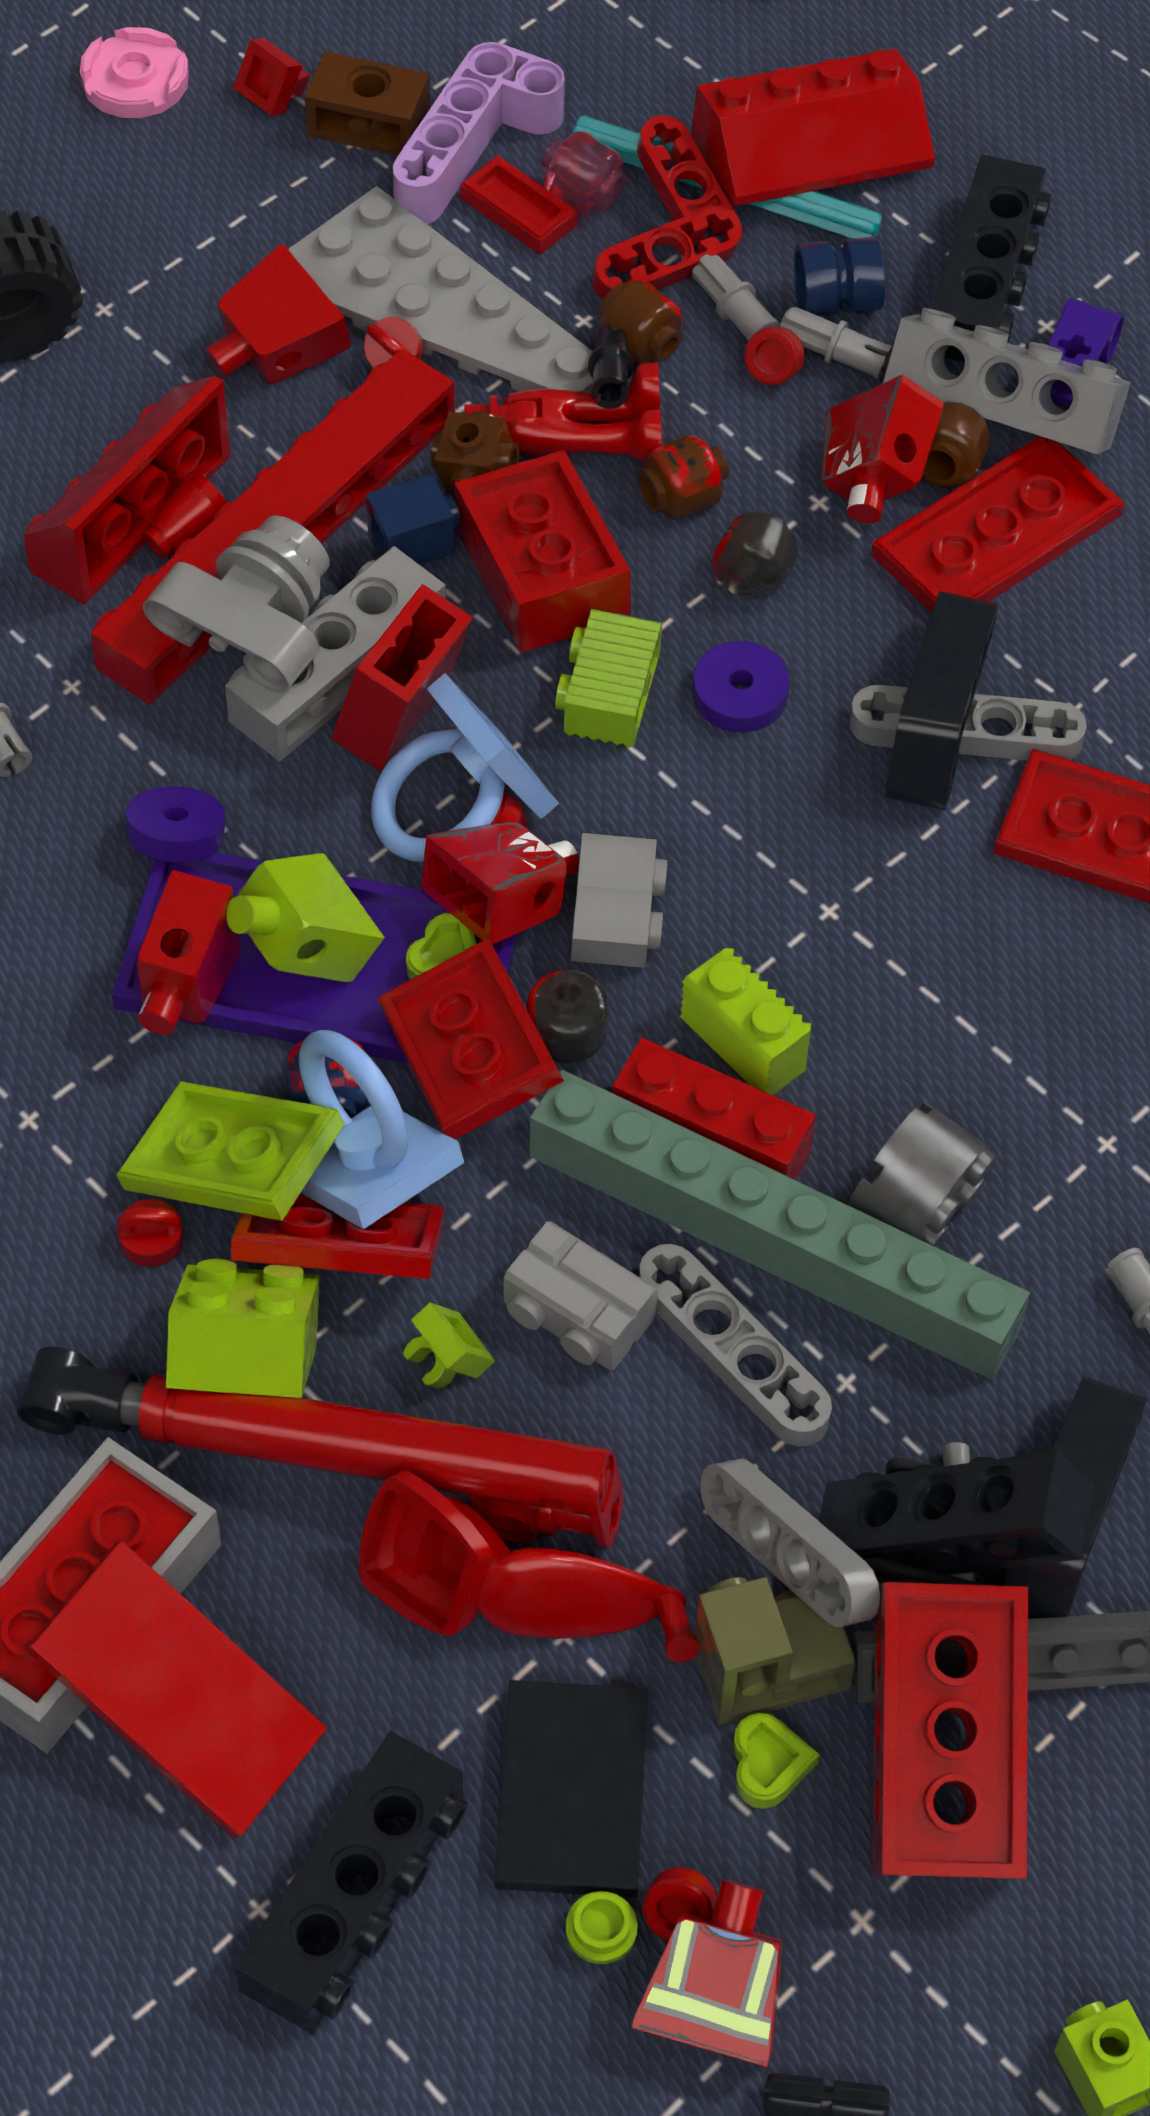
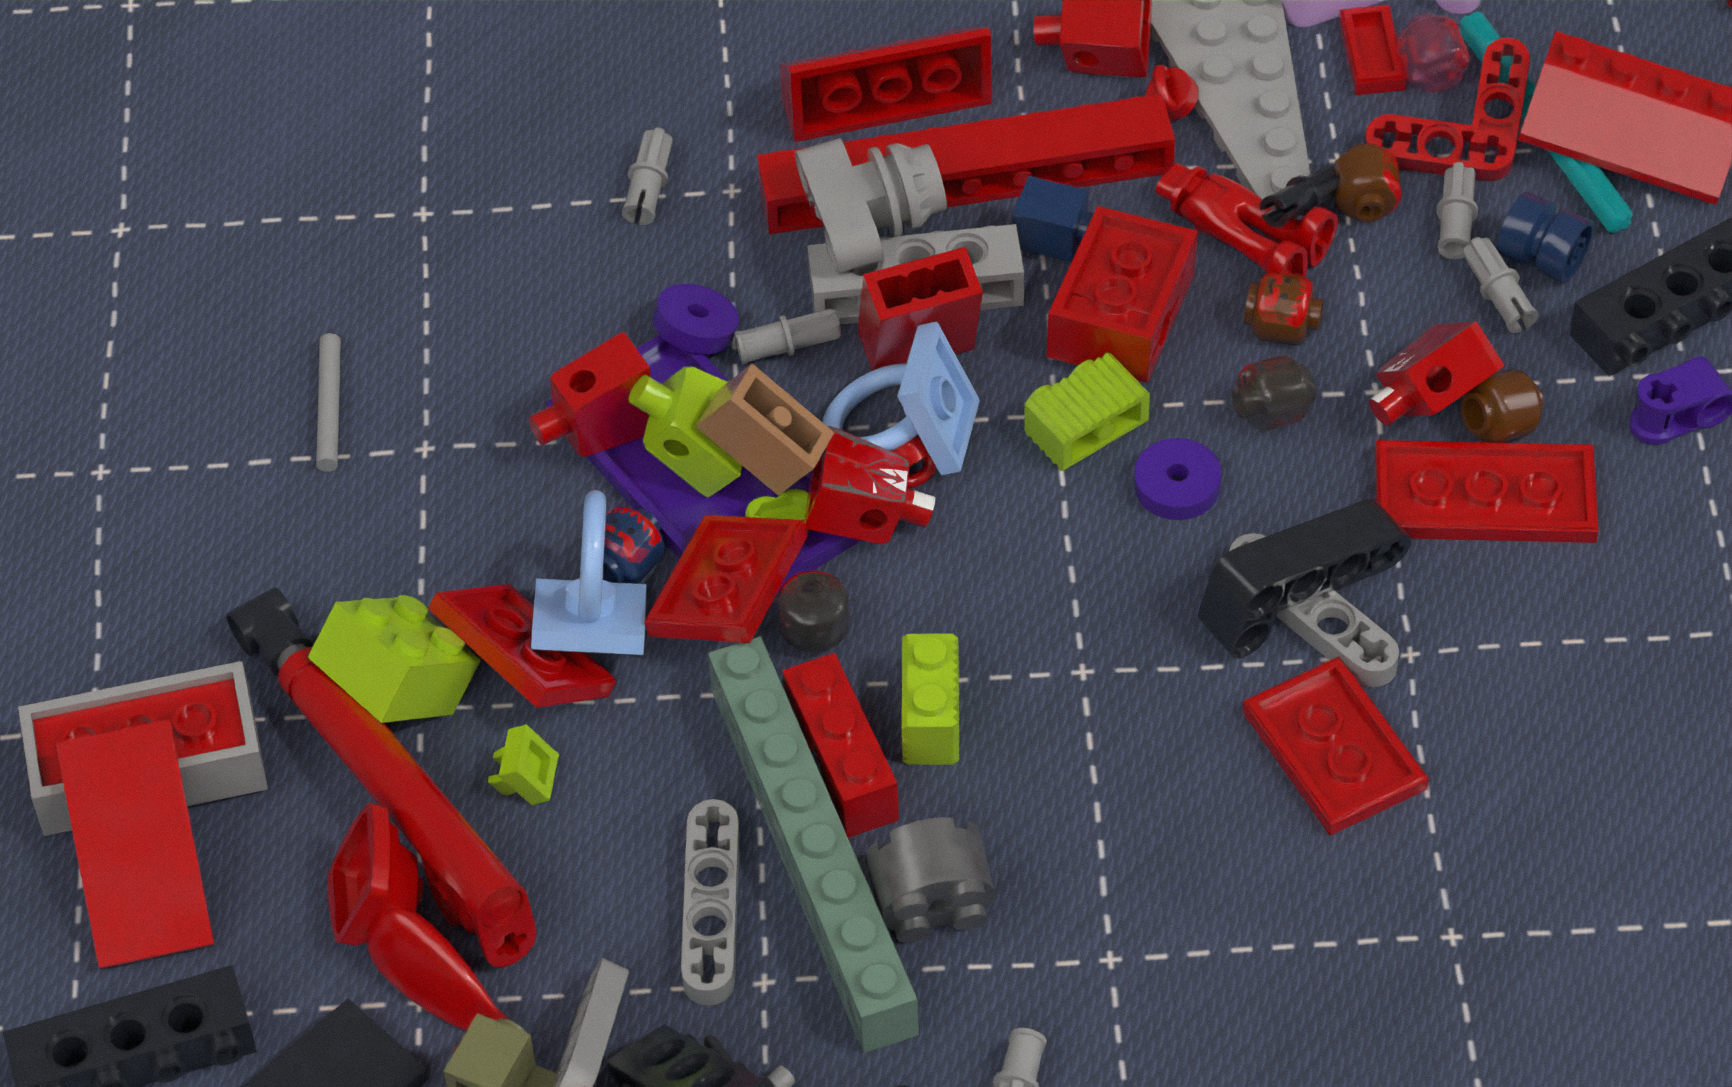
camera: 45 degrees right, 5 degrees down
(150, 1232) = (420, 567): red tile -> none
(183, 515) = (908, 116): red cone -> none
(231, 1150) = (508, 545): lime tile -> none
(272, 786) = (787, 335): none -> light grey axle
(387, 874) = (765, 429): none -> medium nougat brick
(472, 447) = (1143, 191): reddish brown brick -> none
(579, 1297) = (637, 796): light grey brick -> none
(615, 900) = (930, 560): light grey brick -> none
(774, 355) = (1441, 265): red tile -> none
(1095, 389) = (1585, 386): light grey brick -> none

